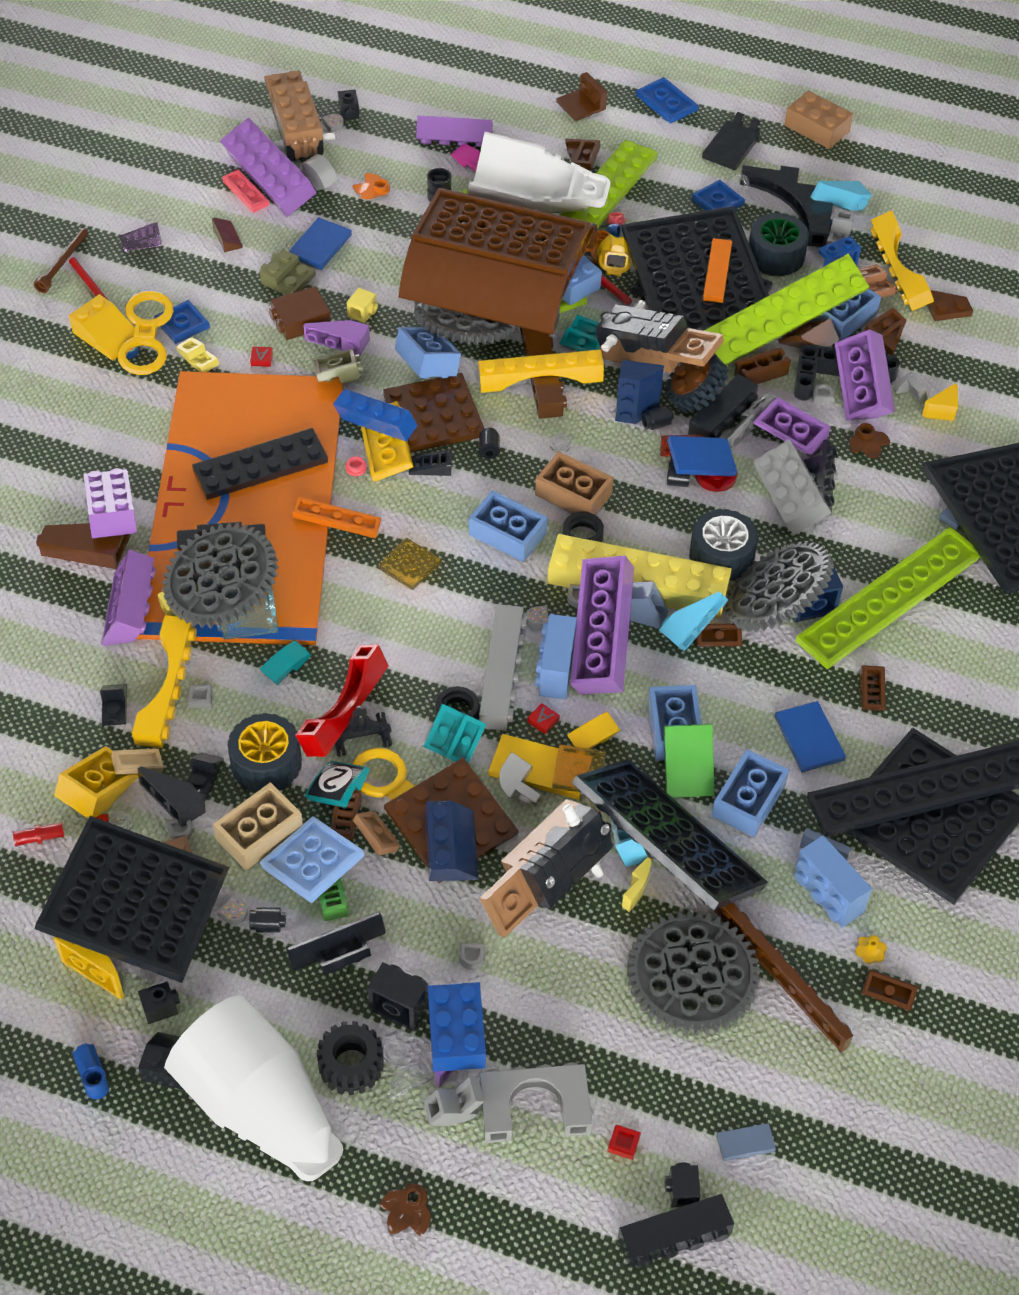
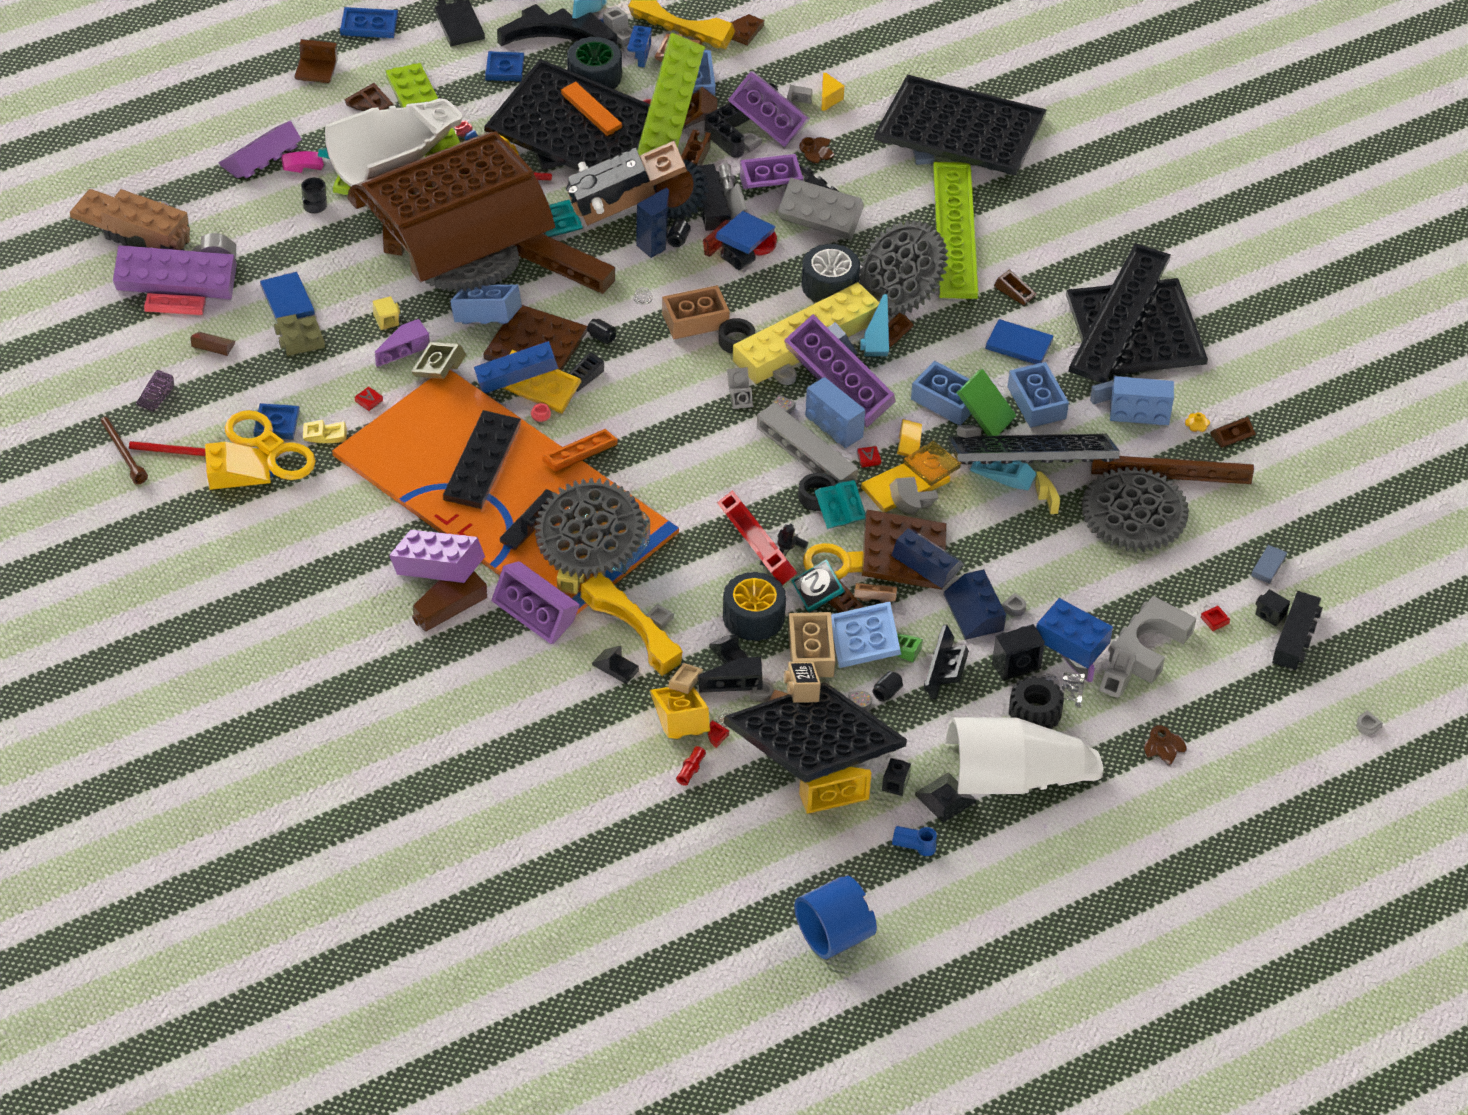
camera: 50 degrees left, 5 degrees down
(196, 848) = (802, 682): none -> tan brick
(284, 661) = (680, 555): teal slope -> none
(298, 309) = (353, 350): reddish brown brick -> none
(348, 104) = (154, 188): black brick -> none
(372, 187) = (261, 232): orange plate -> none
(409, 563) = (661, 440): clear yellow tile -> none
(436, 923) = (975, 605): none -> dark blue slope
(508, 526) = (692, 367): medium blue brick -> none
(529, 572) = (739, 388): none -> light grey slope
(548, 864) = (995, 515): piece -> none
(580, 366) = (551, 277): yellow arch -> none
(650, 770) = (968, 431): none -> light grey tile
(744, 179) = (509, 42): clear plate -> none
(890, 326) = (730, 70): reddish brown wing -> none

